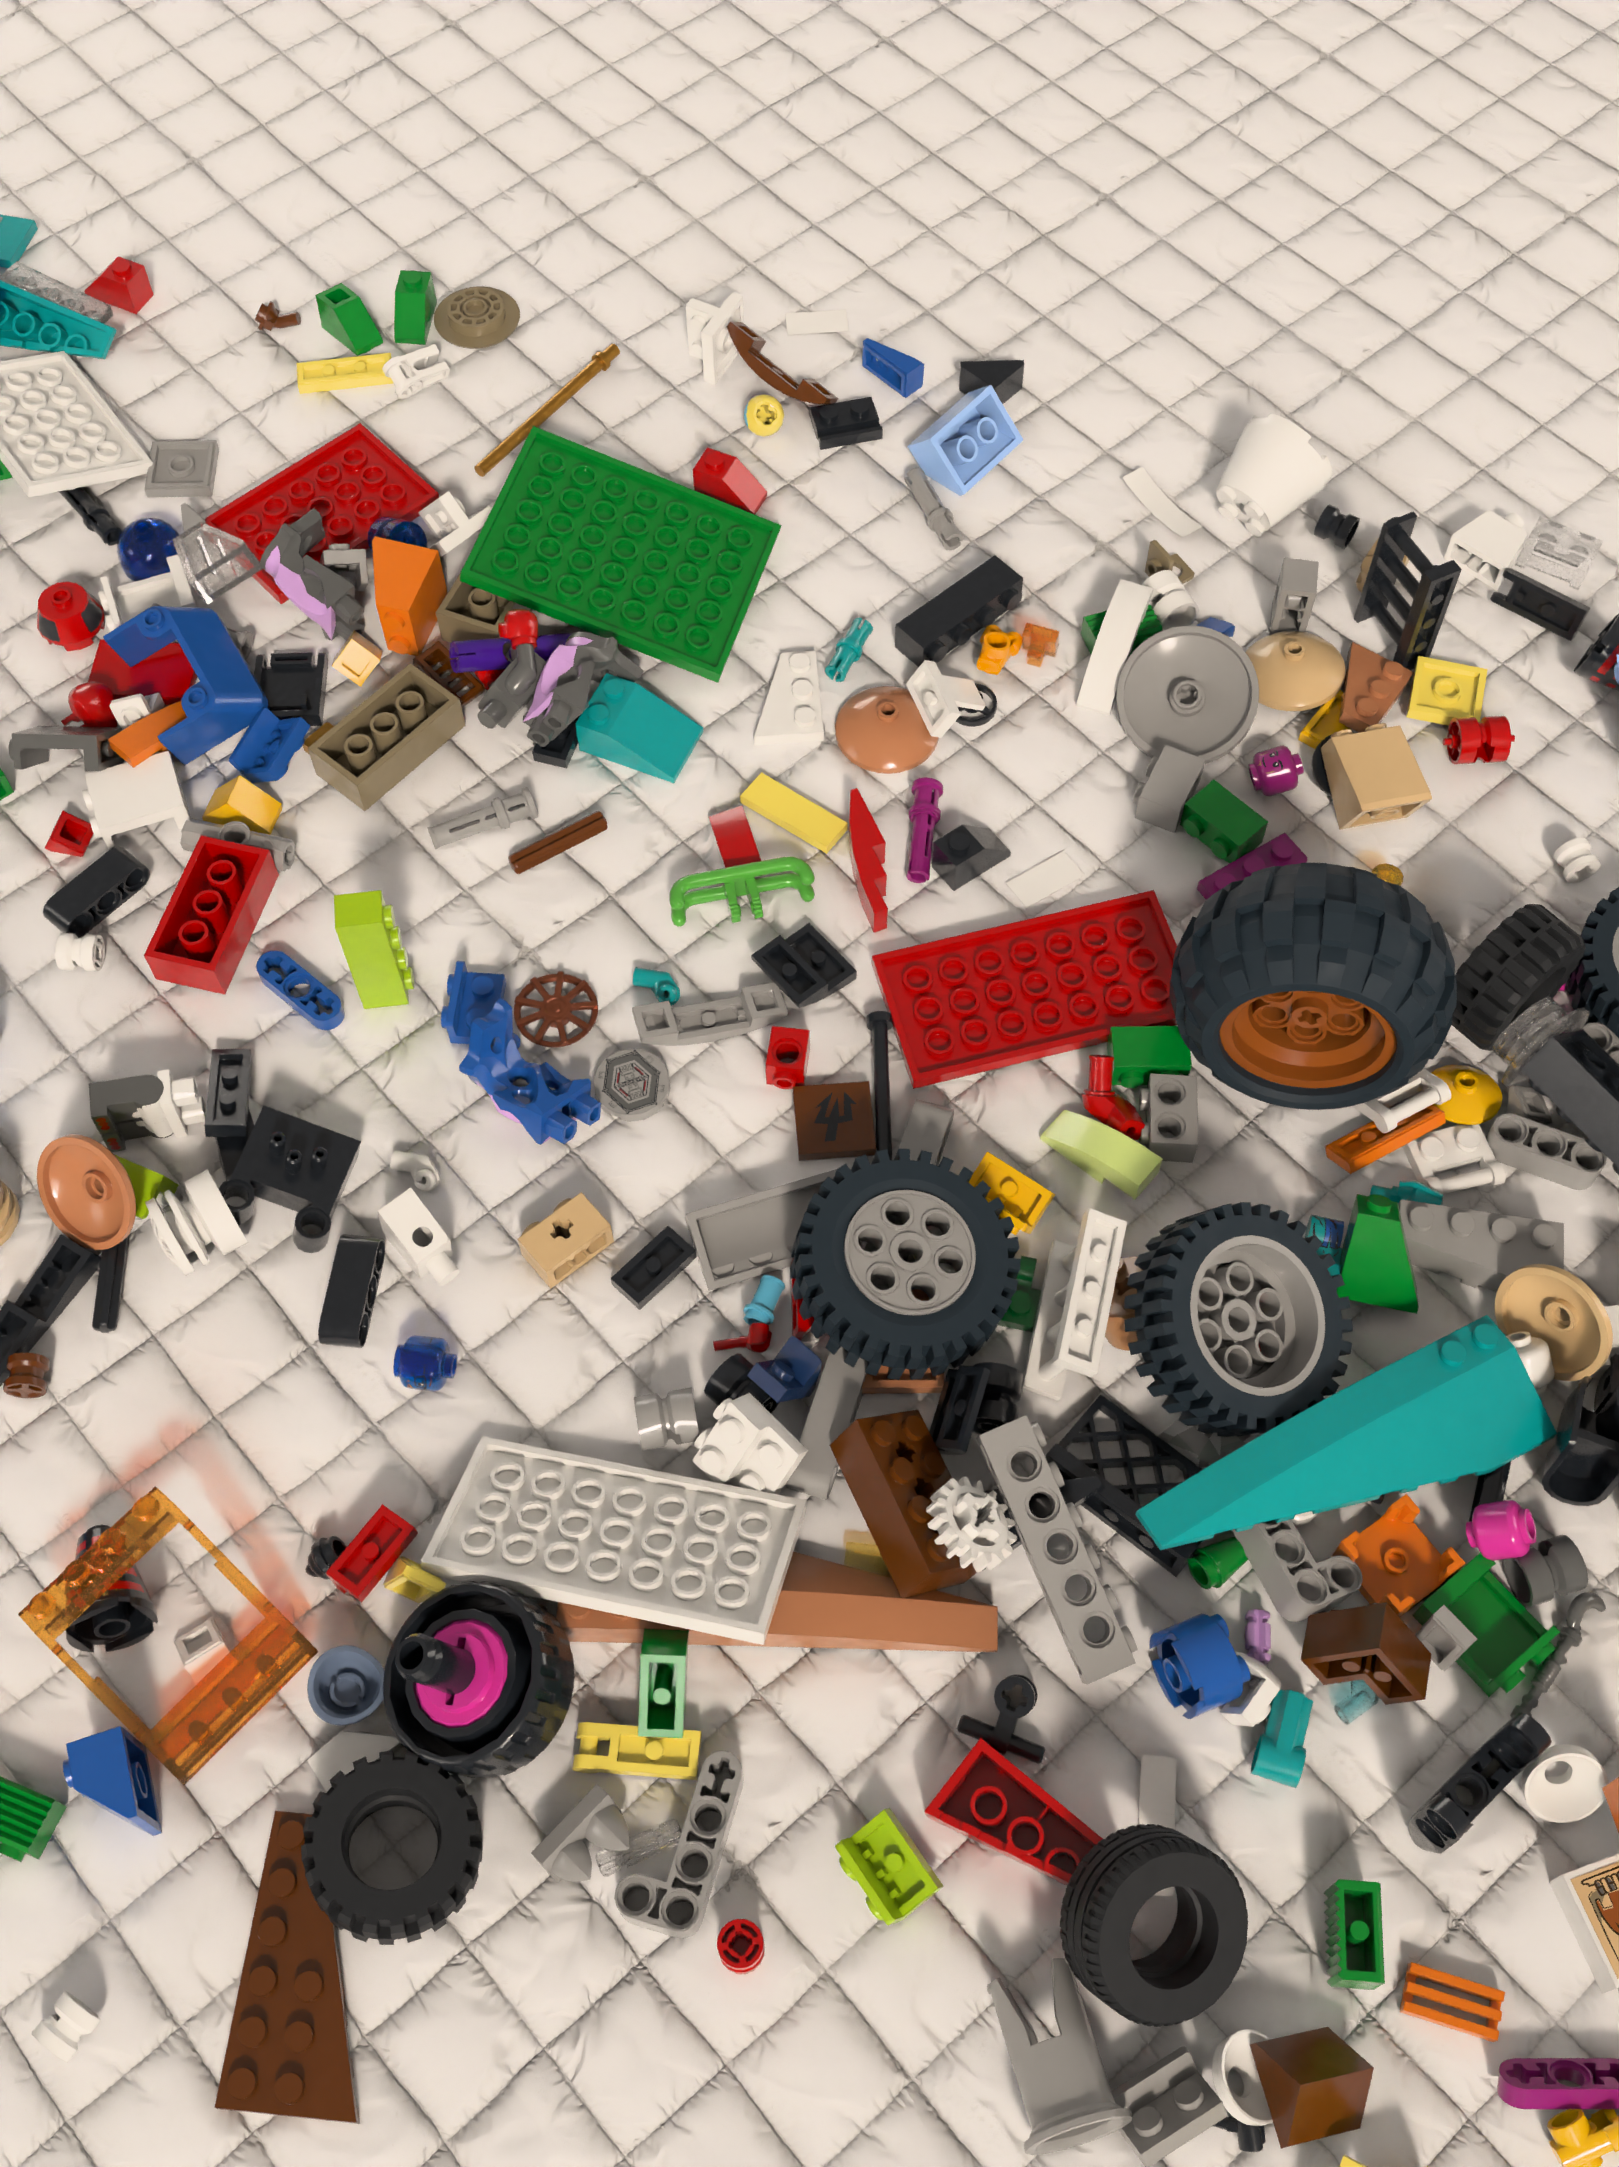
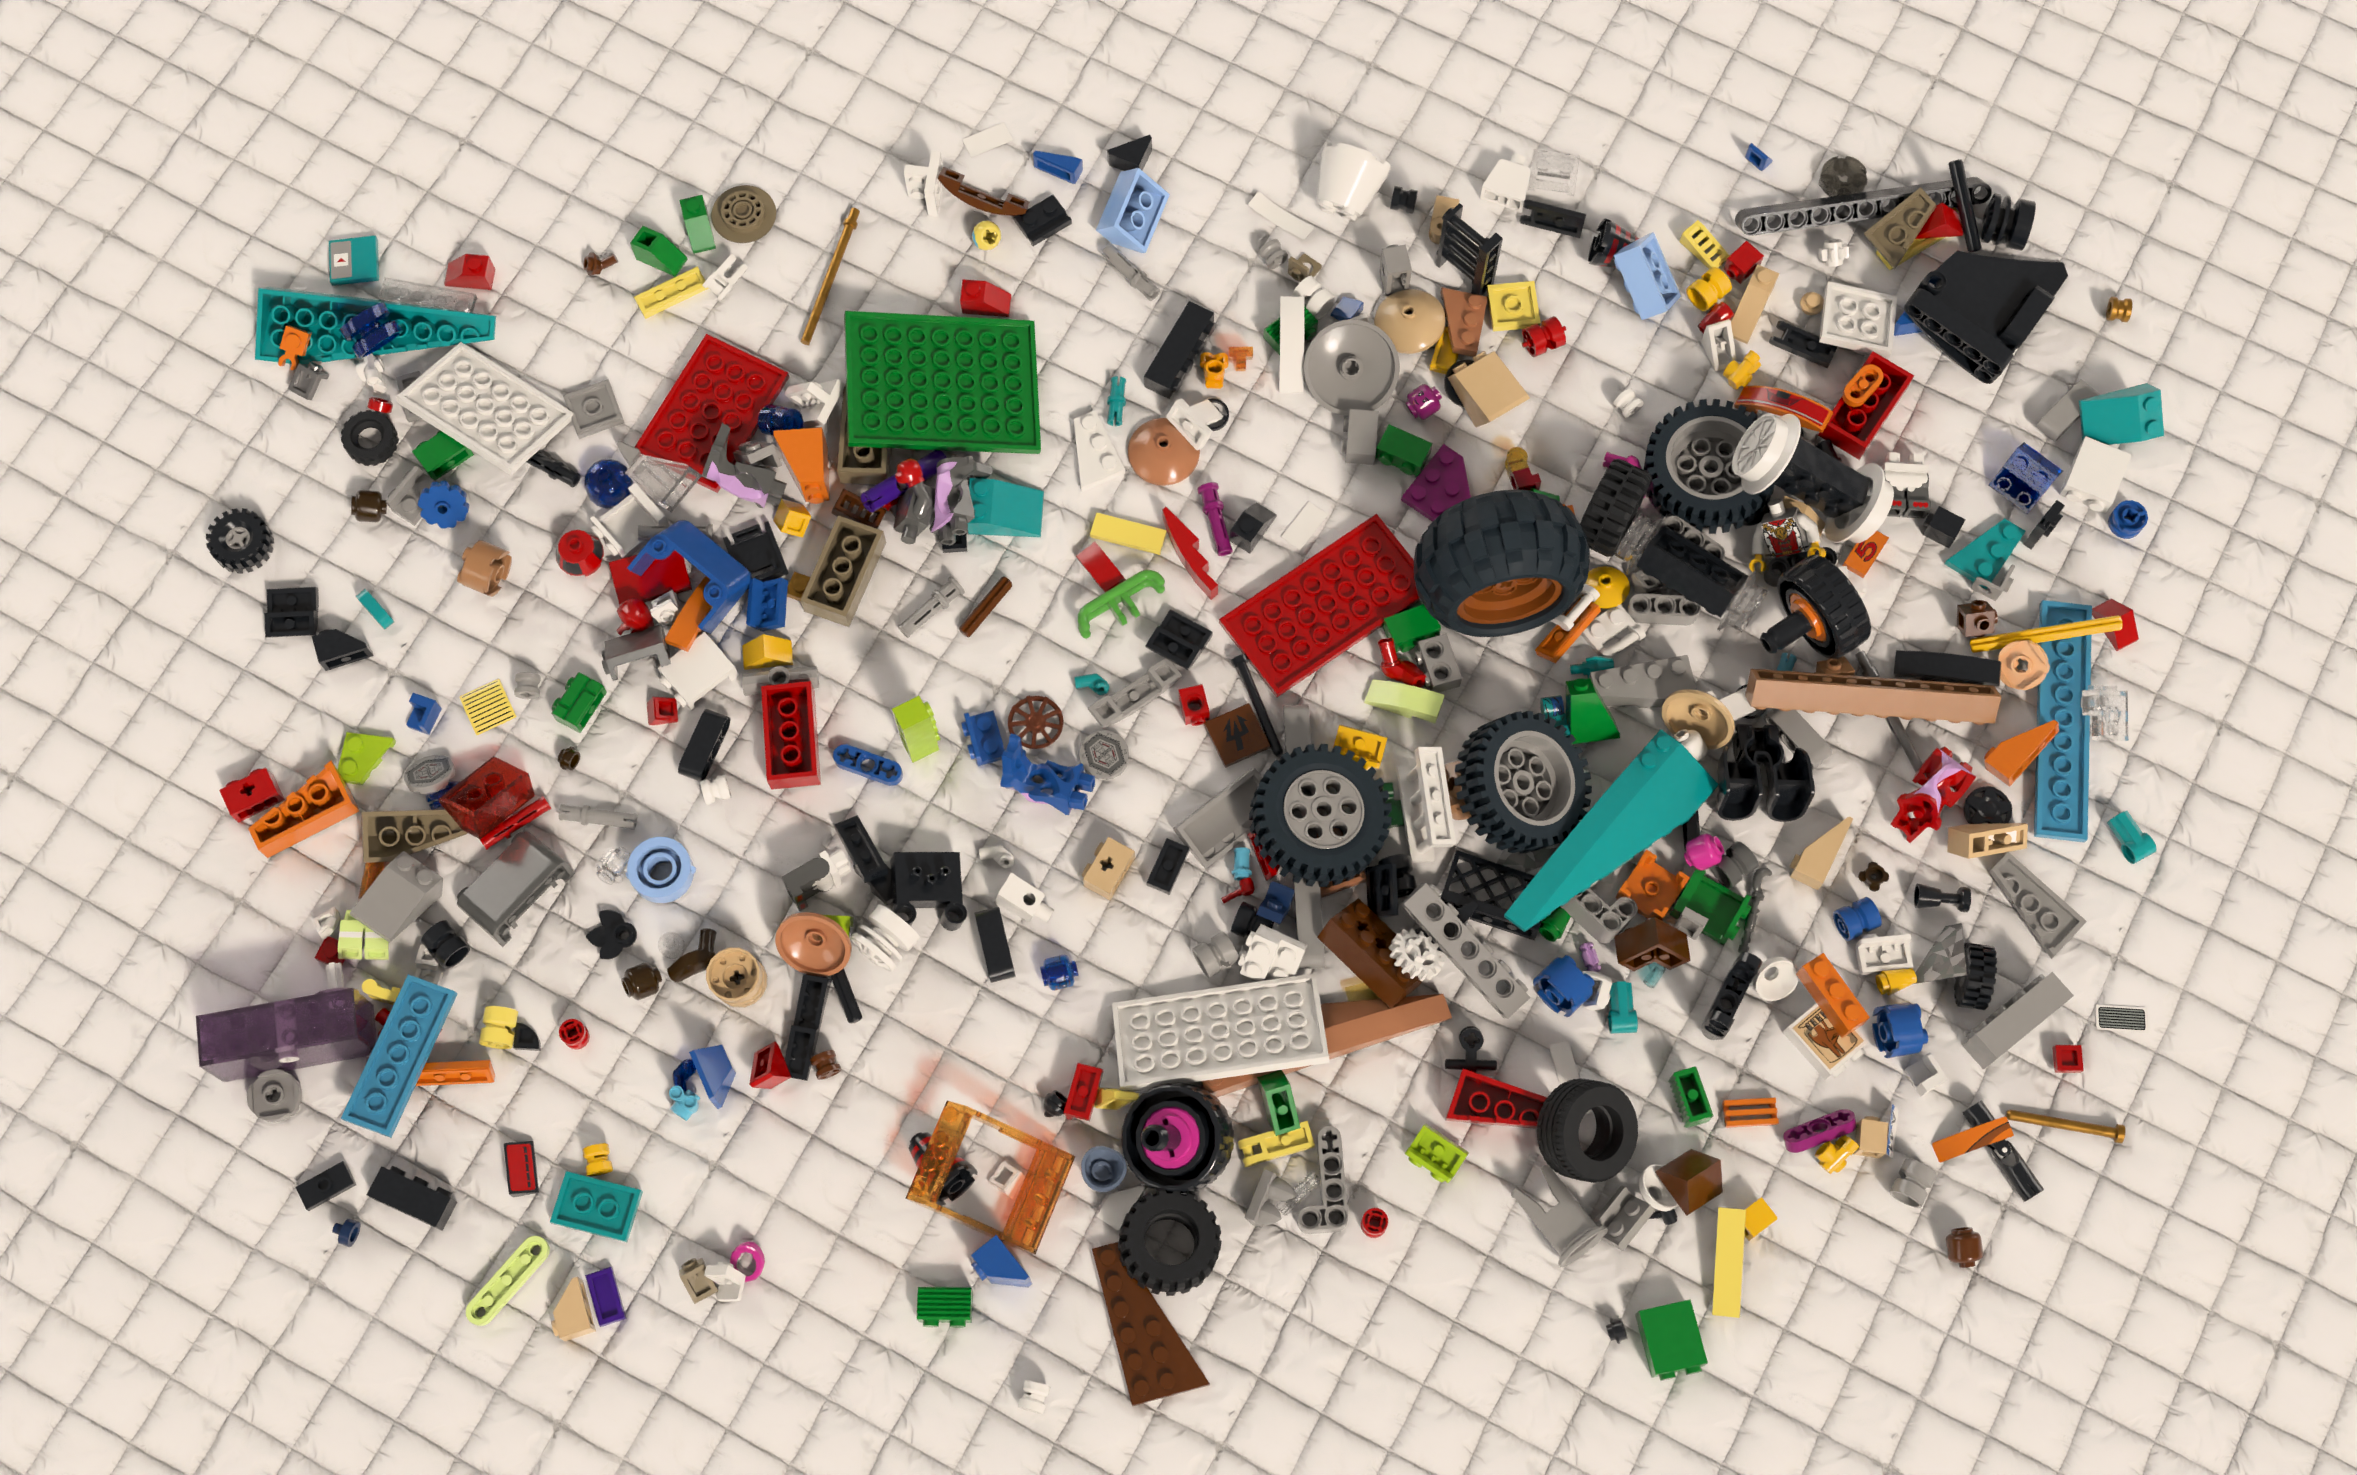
camera: 20 degrees left, 10 degrees up
(1132, 539) = (1273, 254): none -> light grey wheel

